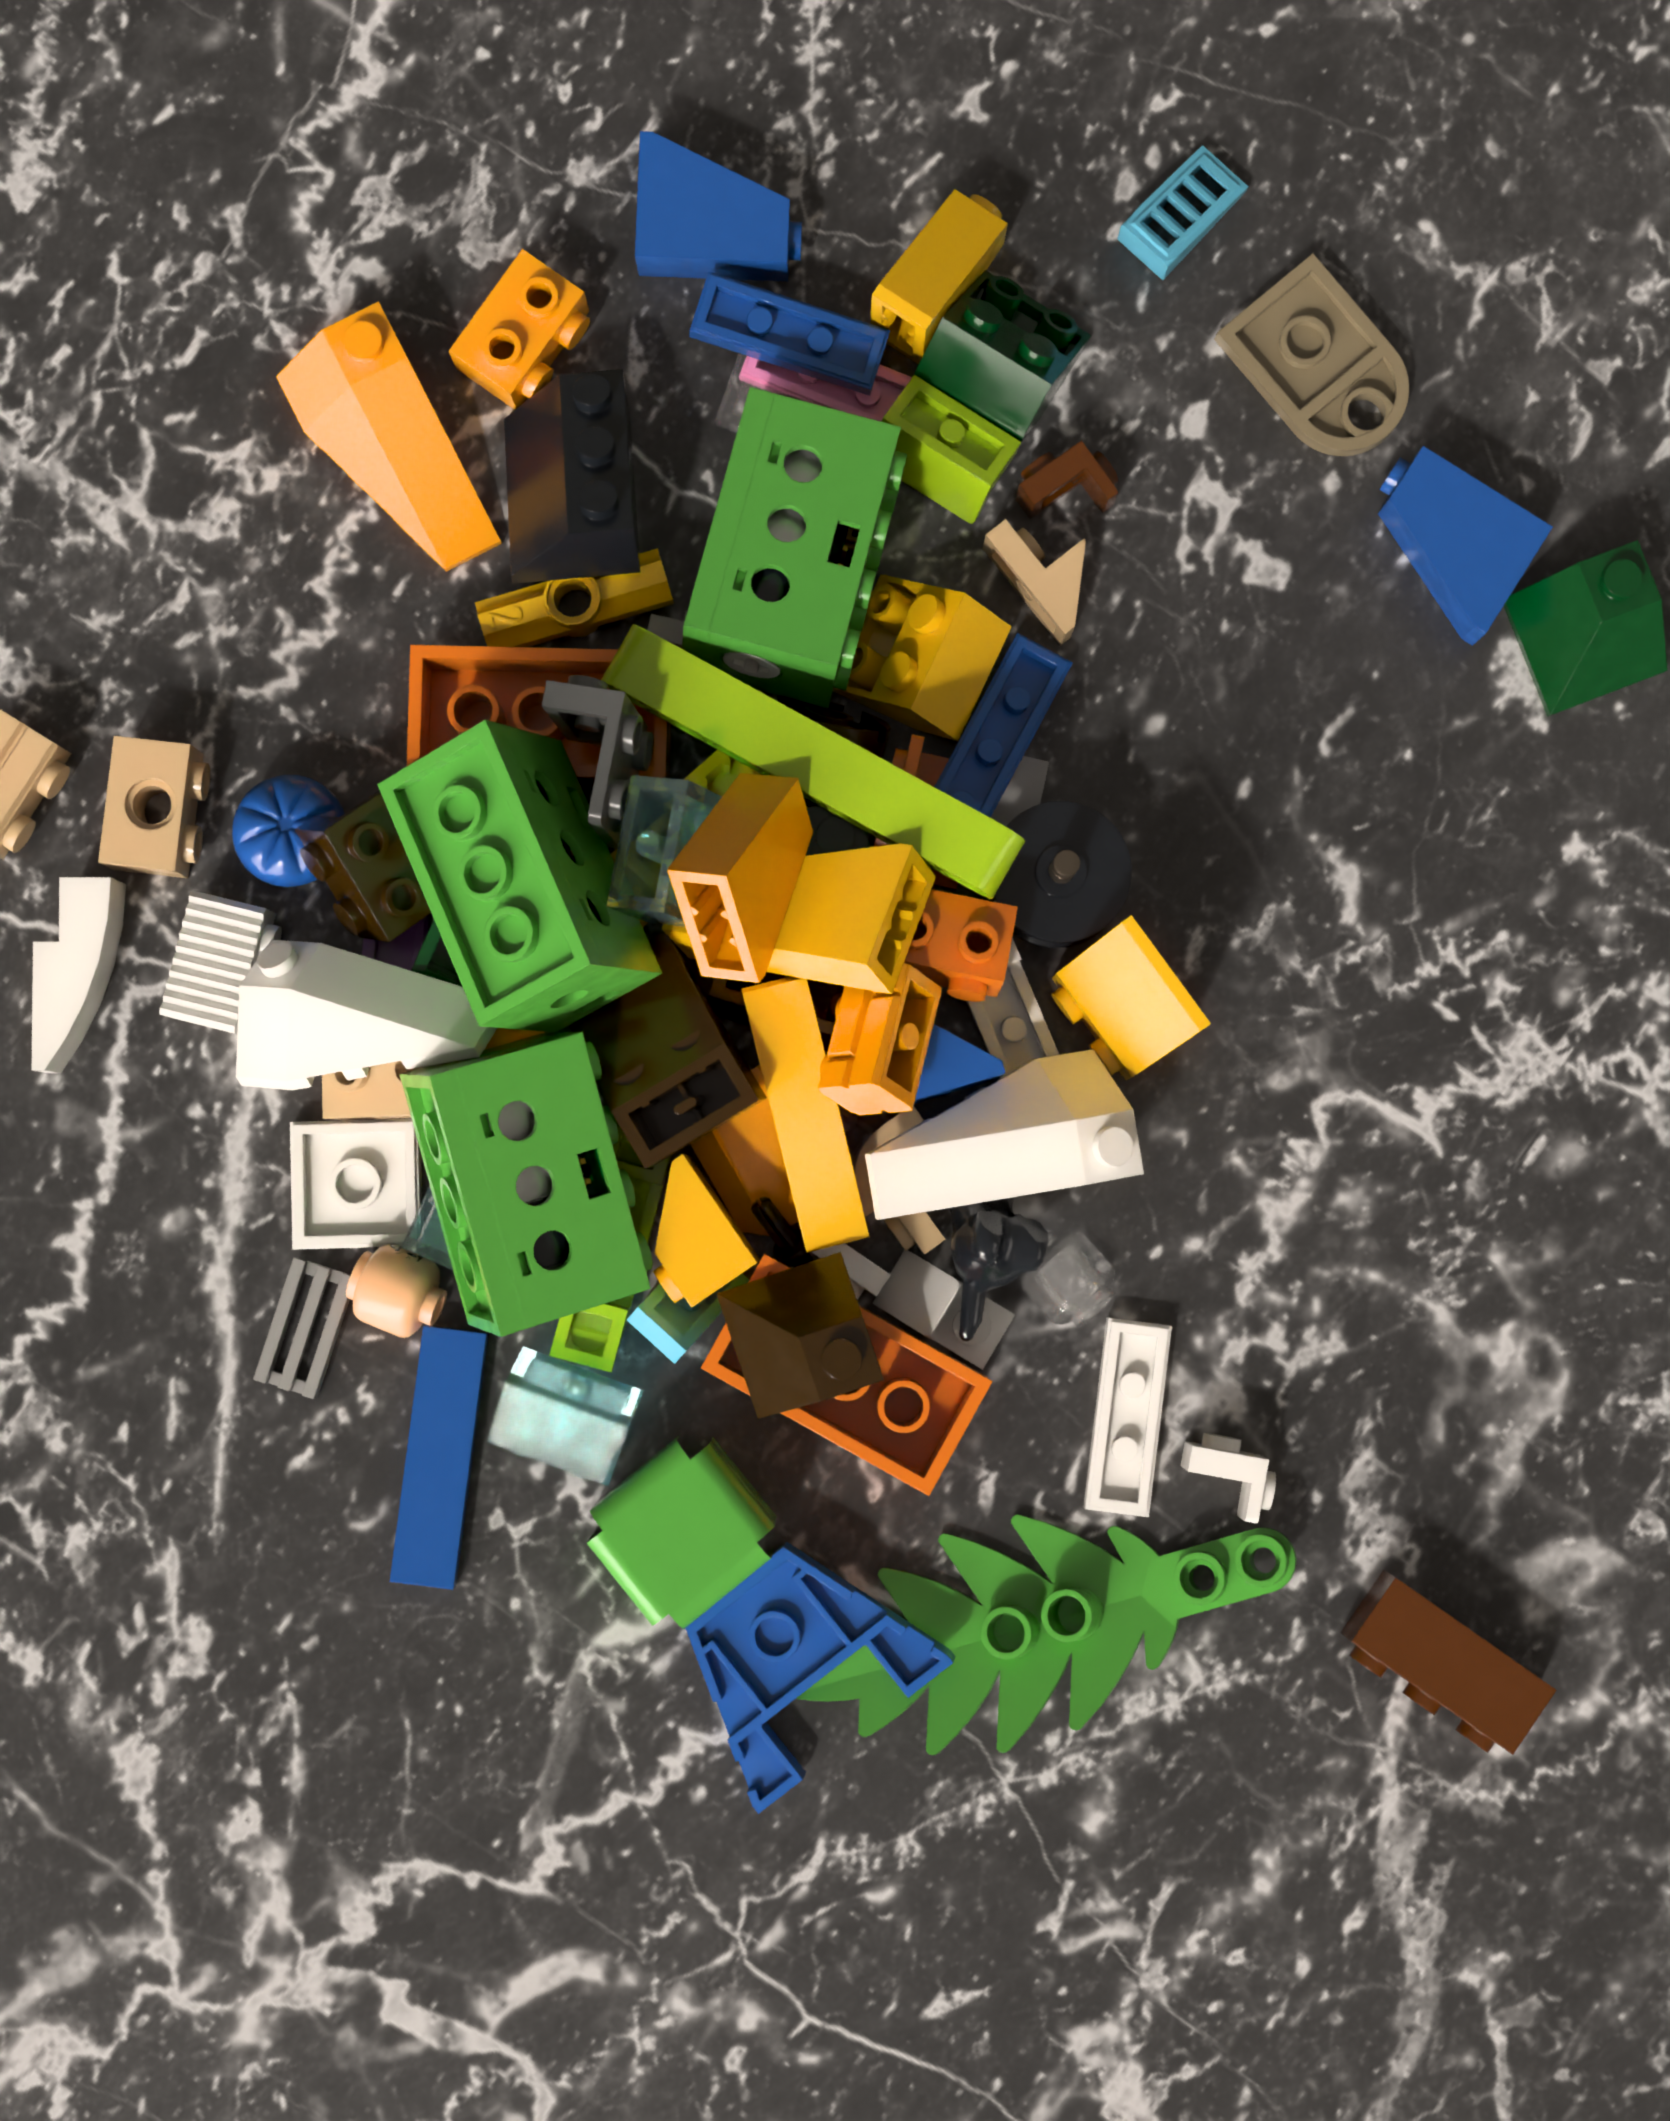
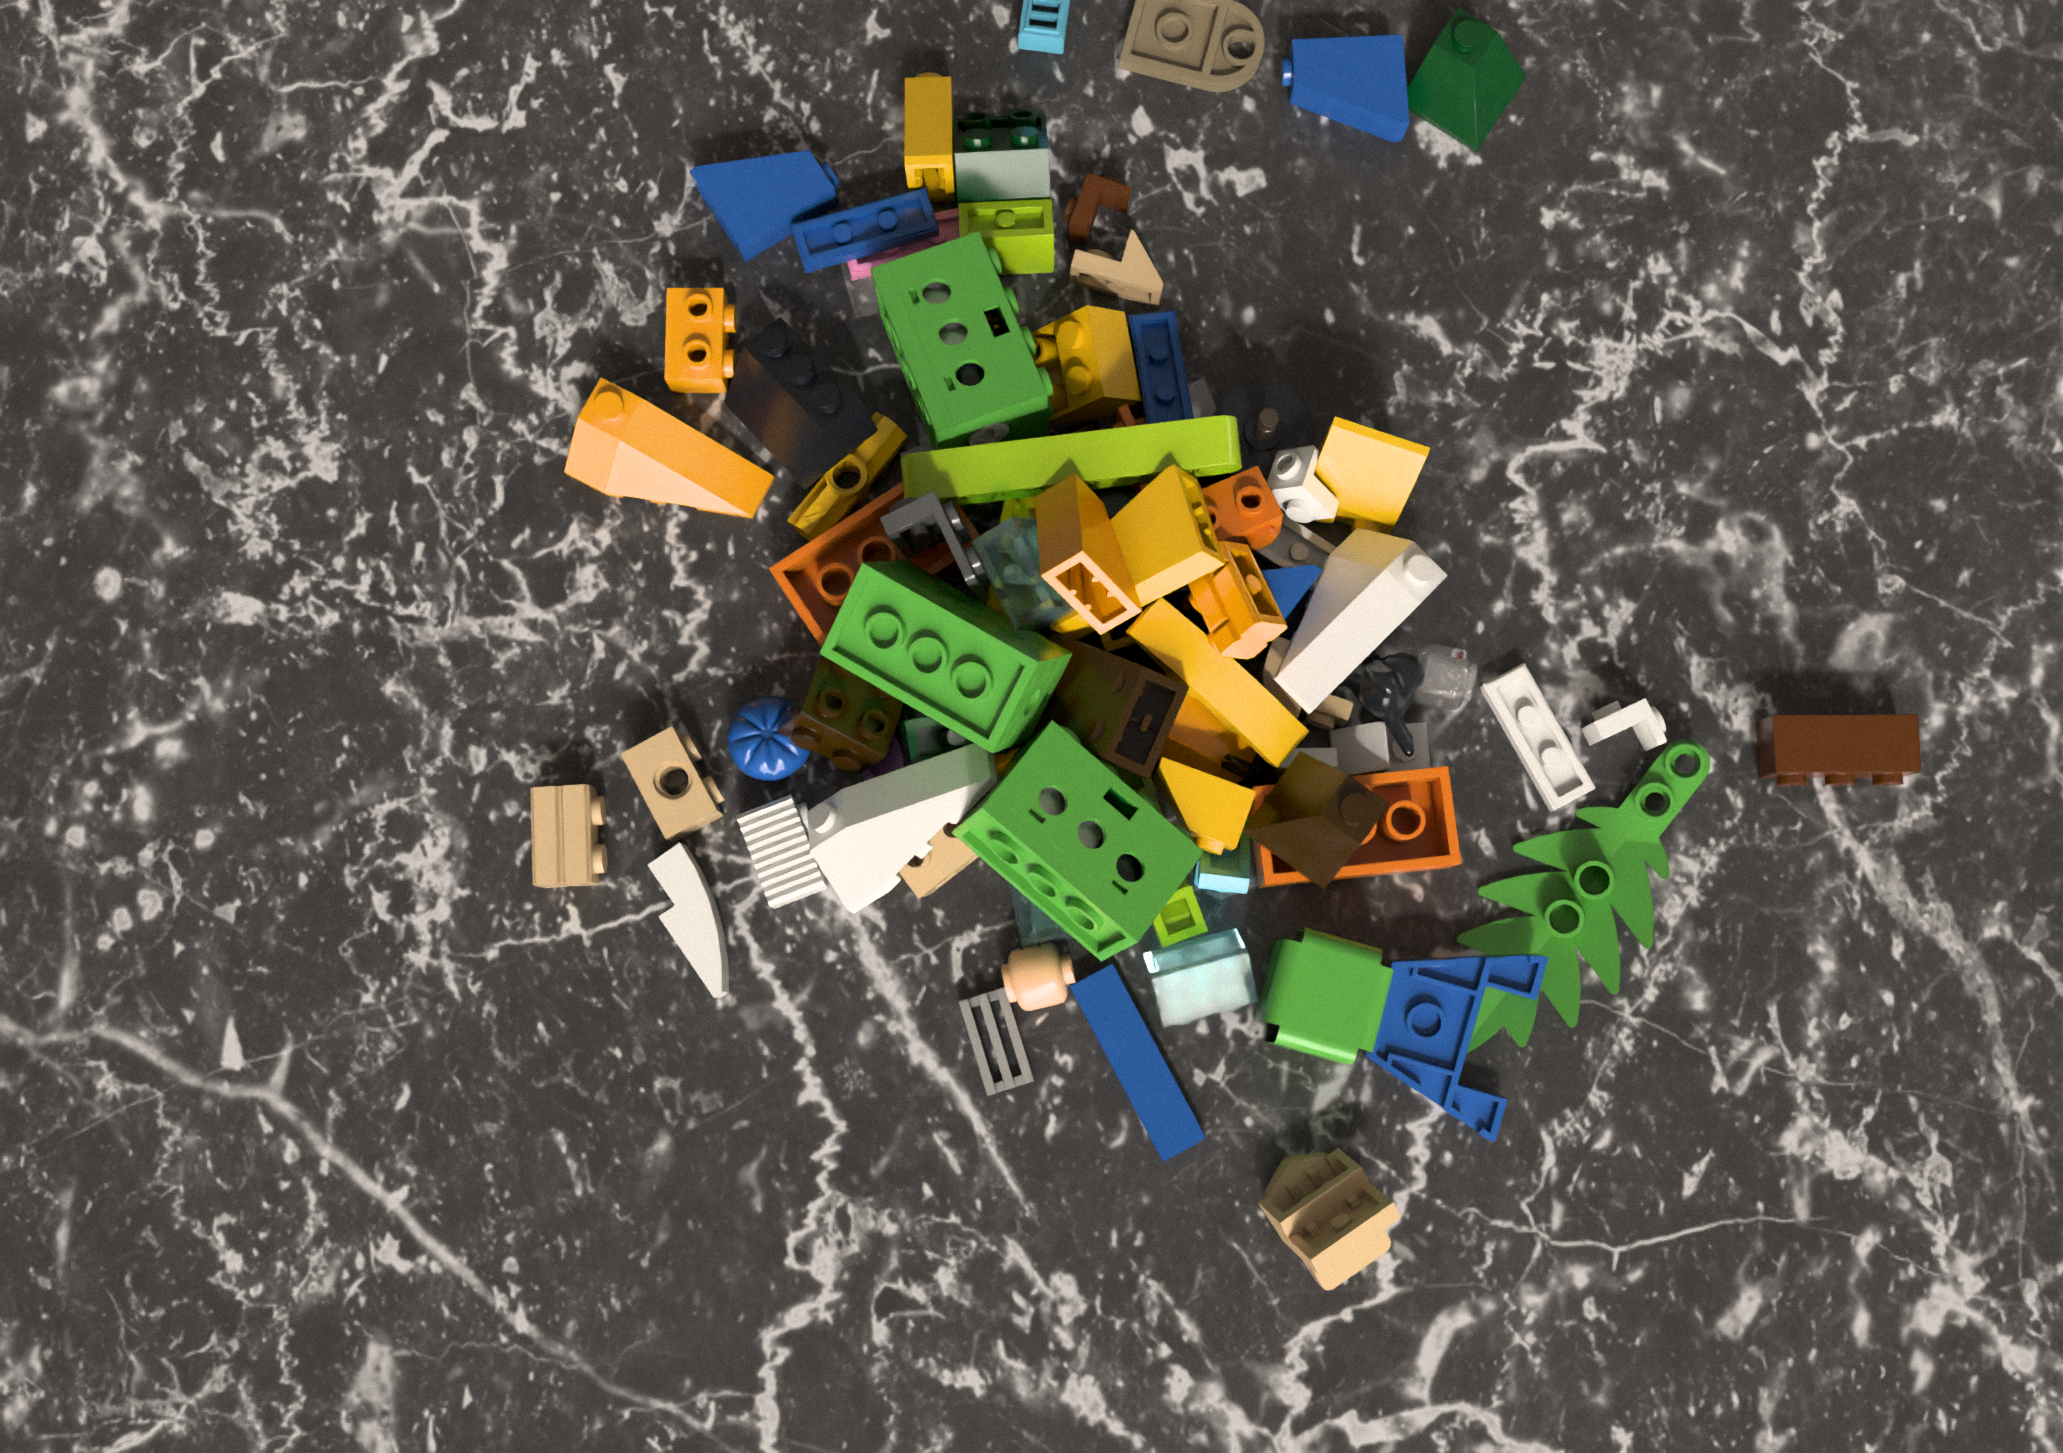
camera: 35 degrees left, 5 degrees down
(353, 1182) = (963, 929): white tile -> none
(520, 1762) = (1329, 1214): none -> tan piece
(1046, 958) = (1297, 488): none -> white bracket

